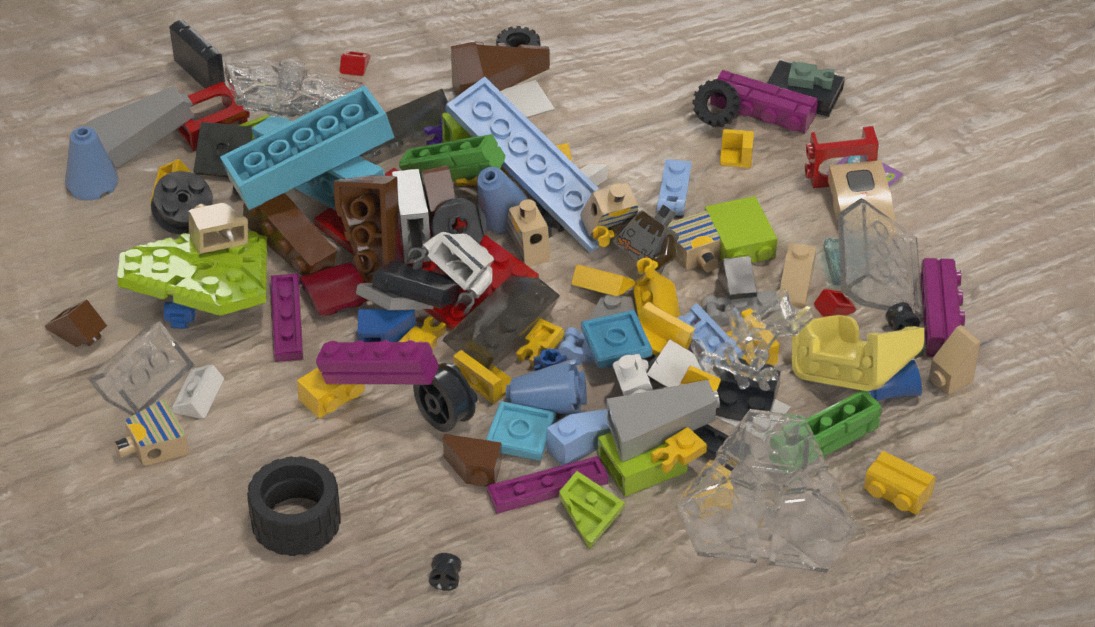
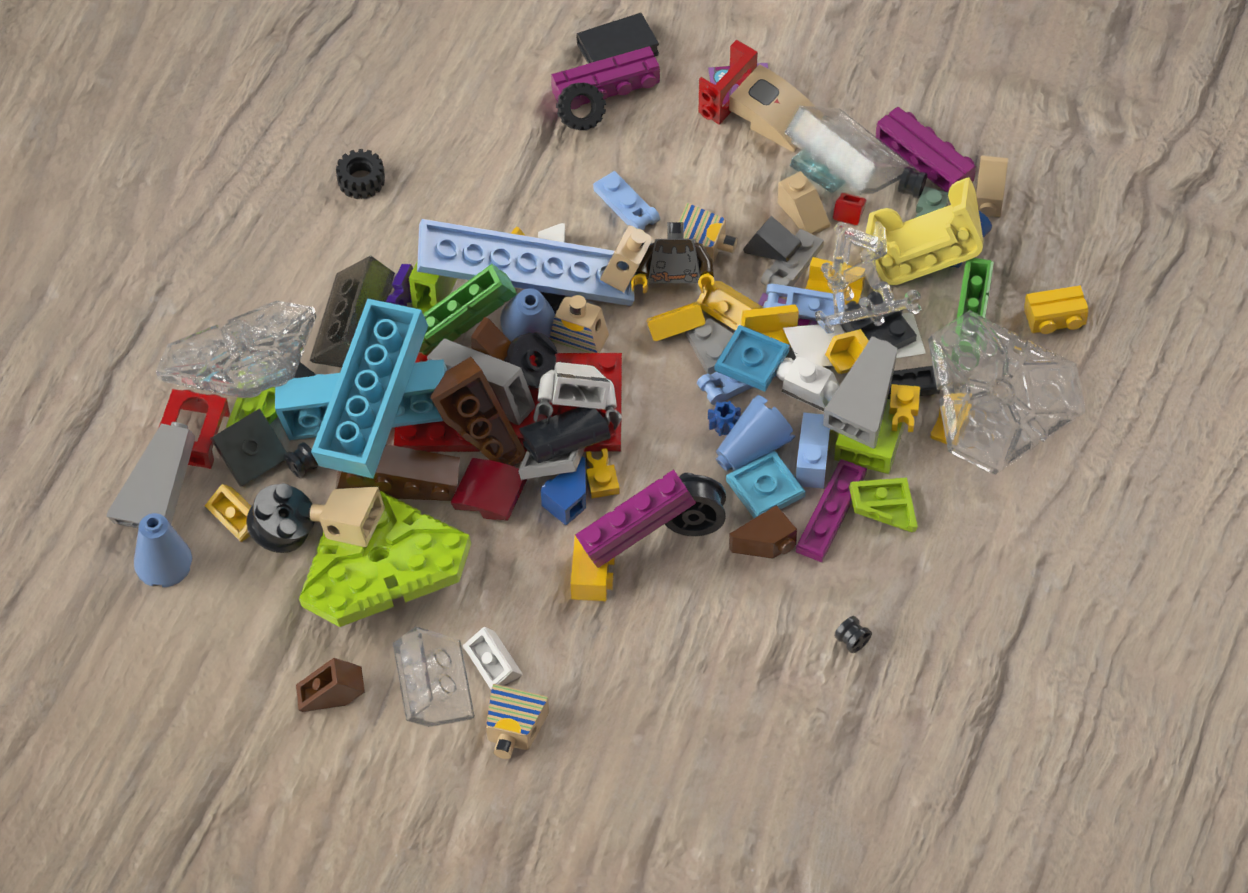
camera: 45 degrees left, 10 degrees up
(178, 314) = (401, 612): blue gear -> none
(196, 55) = (117, 384): black piece -> none
(286, 317) = (485, 546): magenta tile -> none
(294, 479) = (695, 648): black tyre -> none
(354, 63) = (242, 288): red slope -> none
(485, 382) = (682, 462): yellow panel -> none
(497, 63) = (368, 212): reddish brown wedge -> none
(502, 320) = (653, 411): clear smoke slope -> none
(528, 98) = (406, 217): white sticker -> none
(541, 337) = (691, 402): yellow plate -> none
(737, 148) = (635, 133): yellow panel -> none
(743, 230) = (727, 197): lime brick -> none
(808, 75) = (618, 32): sand green plate -> none

